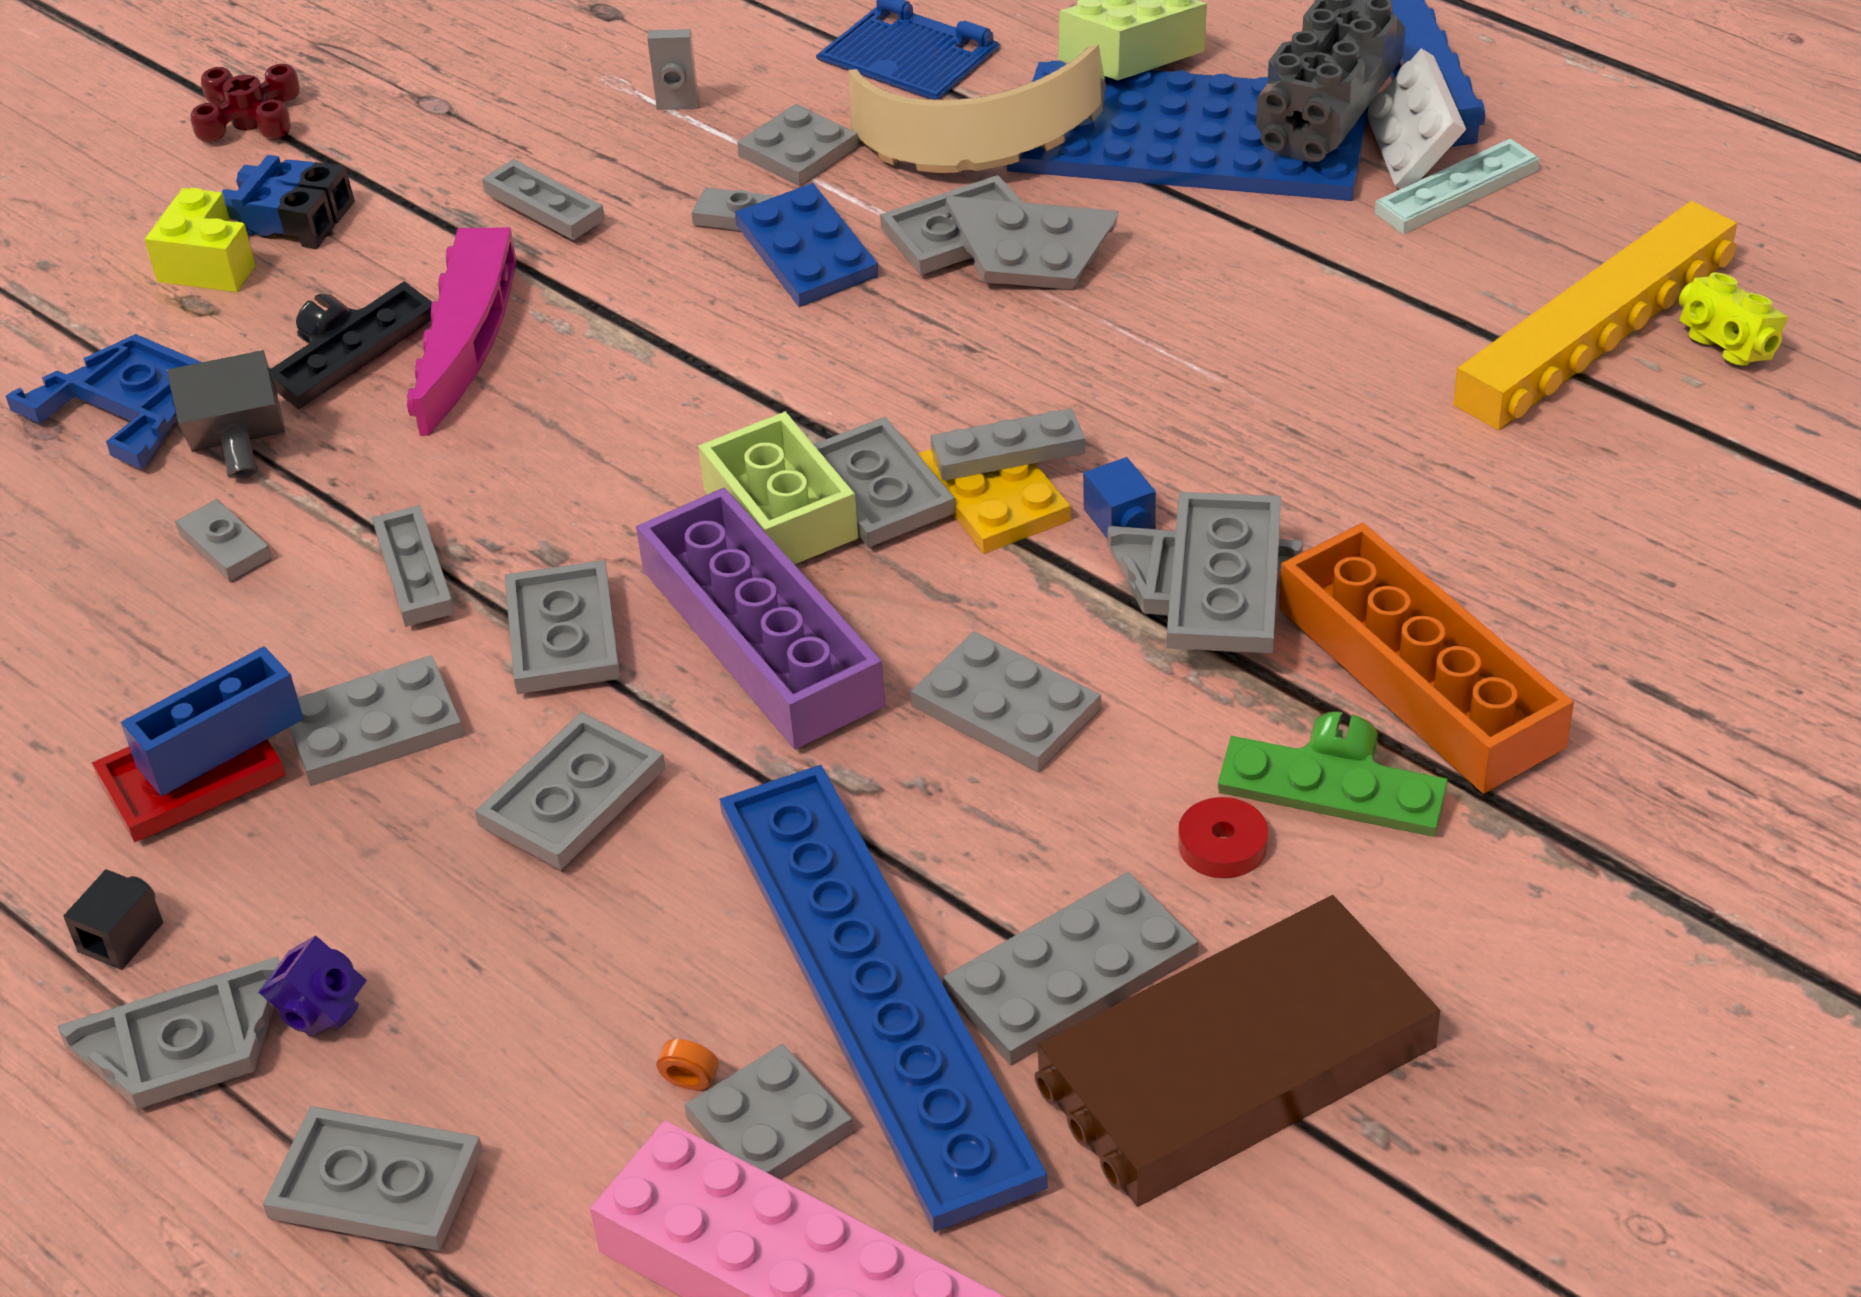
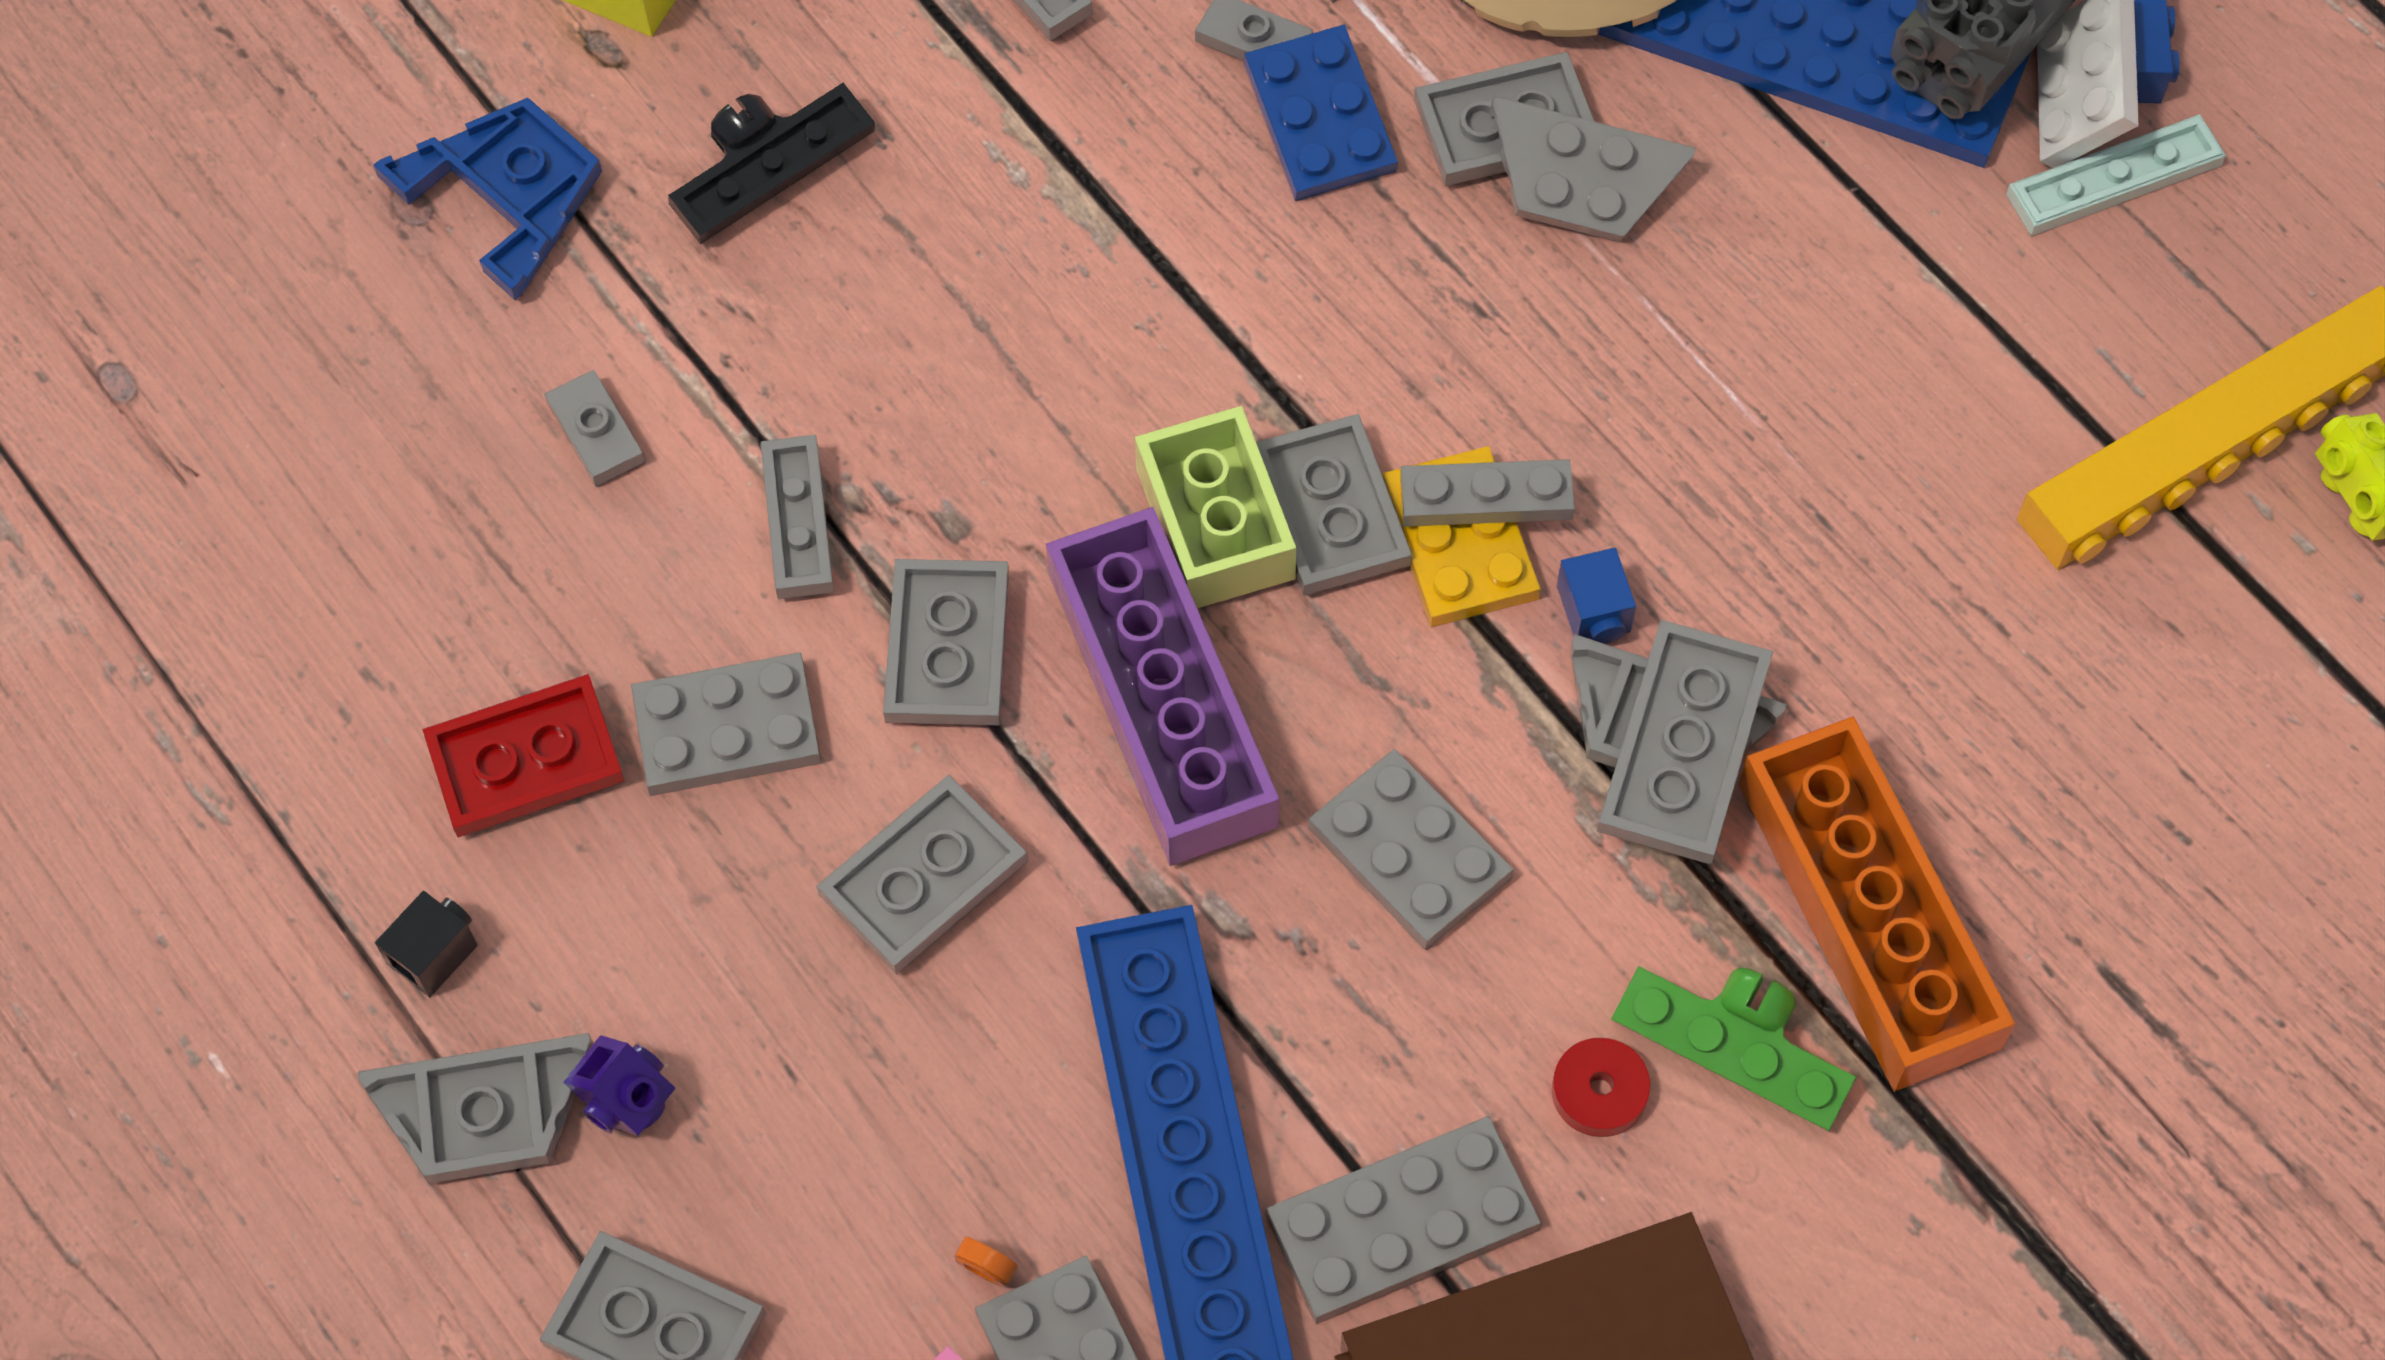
camera: 10 degrees right, 20 degrees up
(212, 720) = (554, 723): blue brick -> none
(227, 406) = (619, 253): dark grey brick -> none
(463, 321) = (904, 151): dark pink slope -> none

